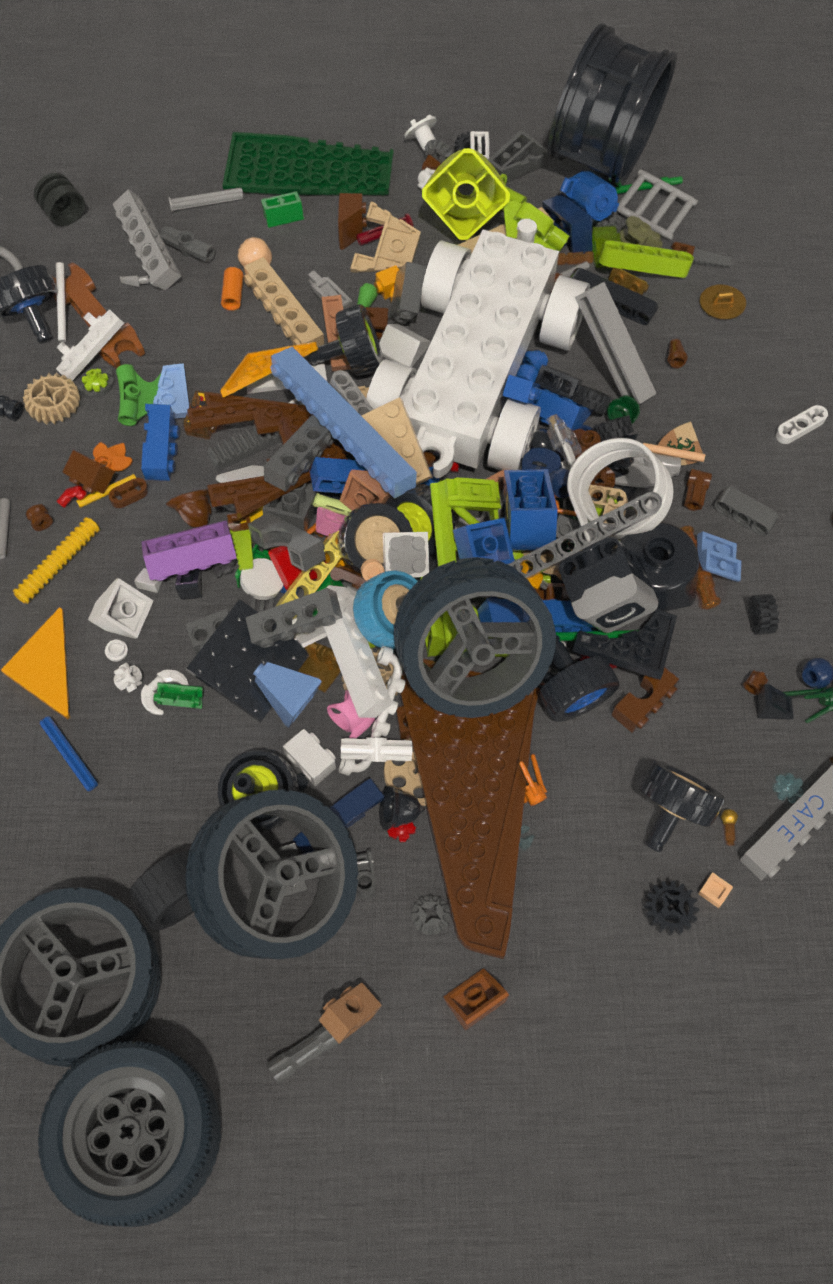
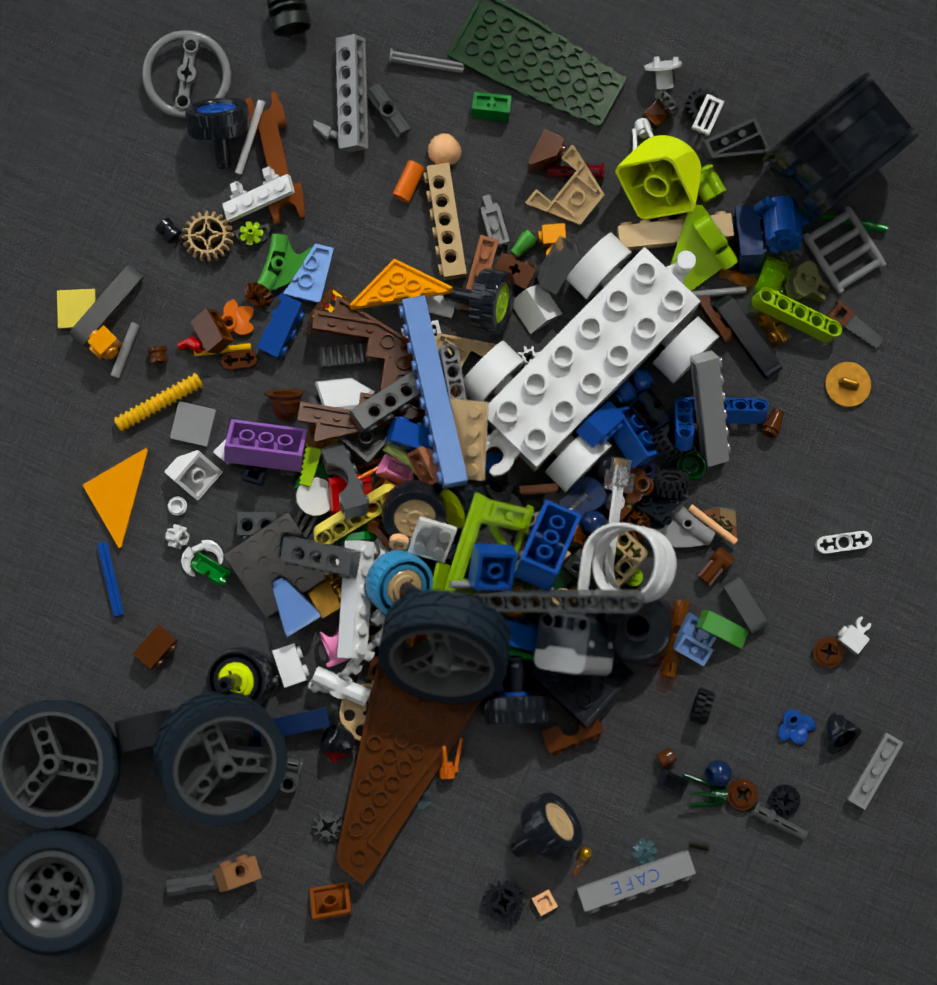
camera: 25 degrees right, 20 degrees up
(102, 567) = (193, 424): none -> light grey tile
(124, 417) = (260, 291): none -> reddish brown gear
(148, 799) = (156, 647): none -> reddish brown brick
(601, 377) = (738, 412): none -> blue beam
(737, 534) = (722, 628): none -> bright green slope

